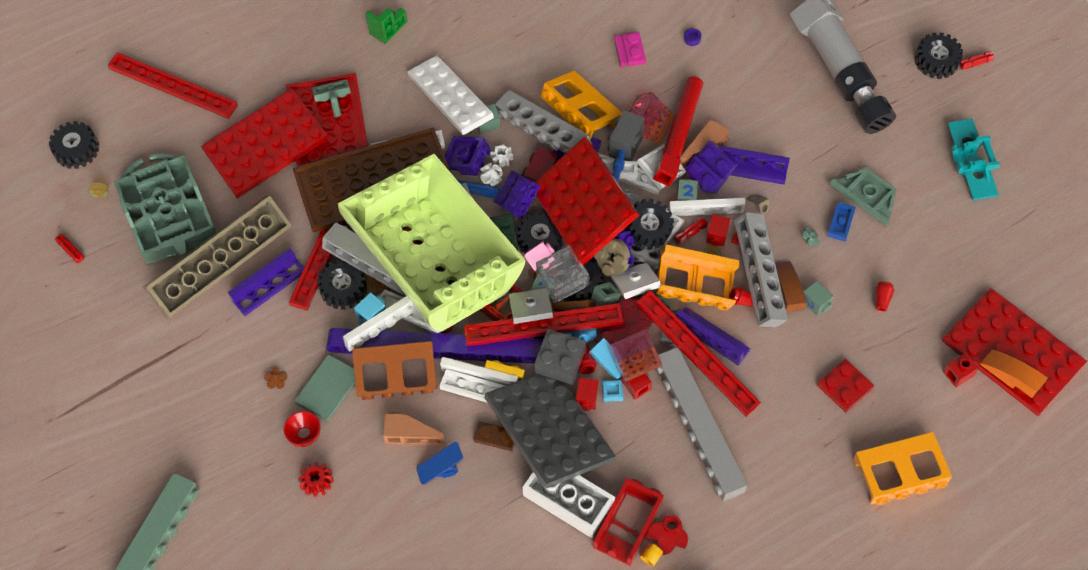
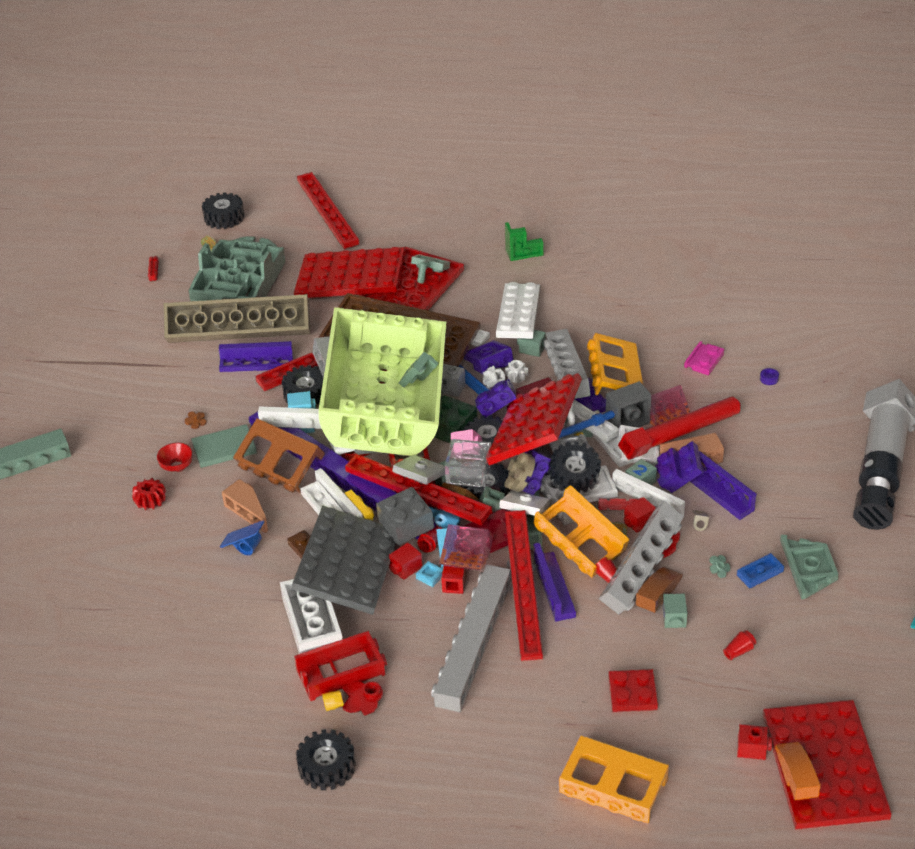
camera: 40 degrees right, 20 degrees down
(449, 215) = (419, 369): none -> sand green bracket

